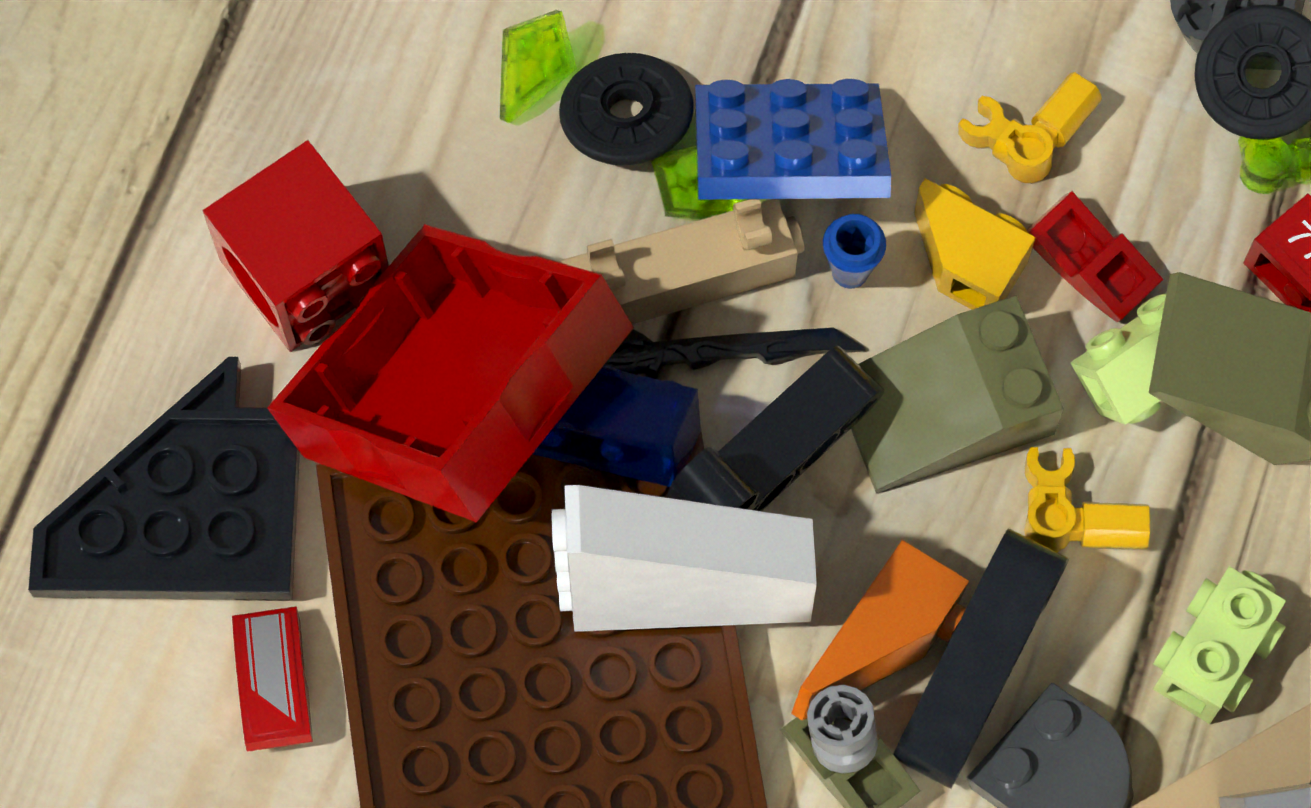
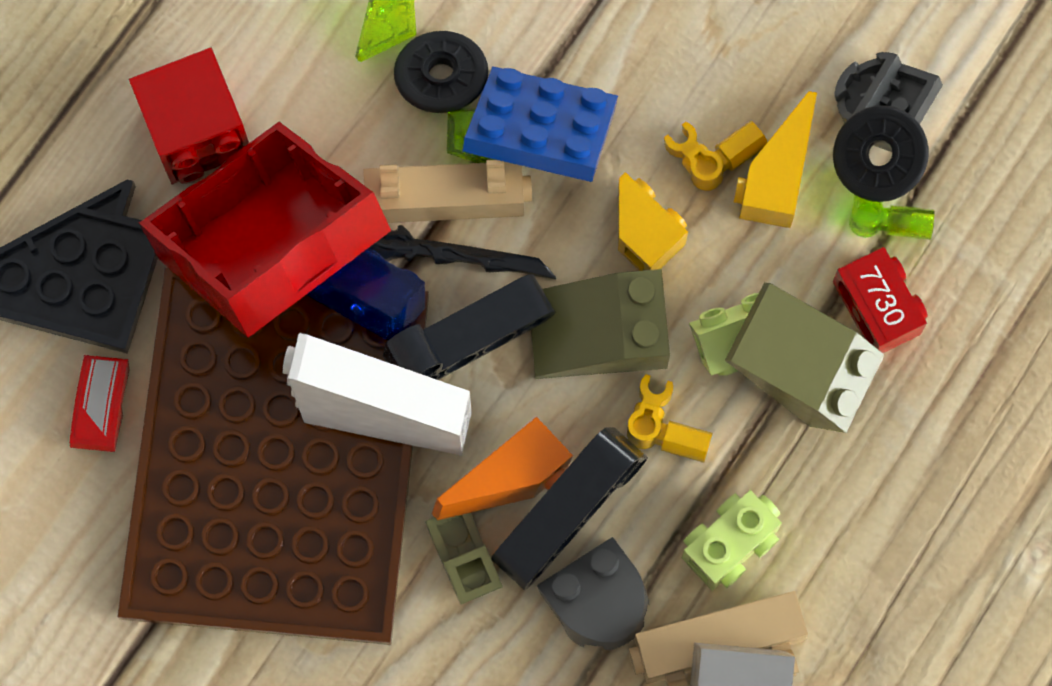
camera: 15 degrees right, 5 degrees up
(845, 744) = (462, 543): light grey wheel -> none
(853, 249) = (562, 200): blue cone -> none
(1092, 260) = (728, 253): red slope -> none
(1129, 142) = (776, 172): none -> yellow slope

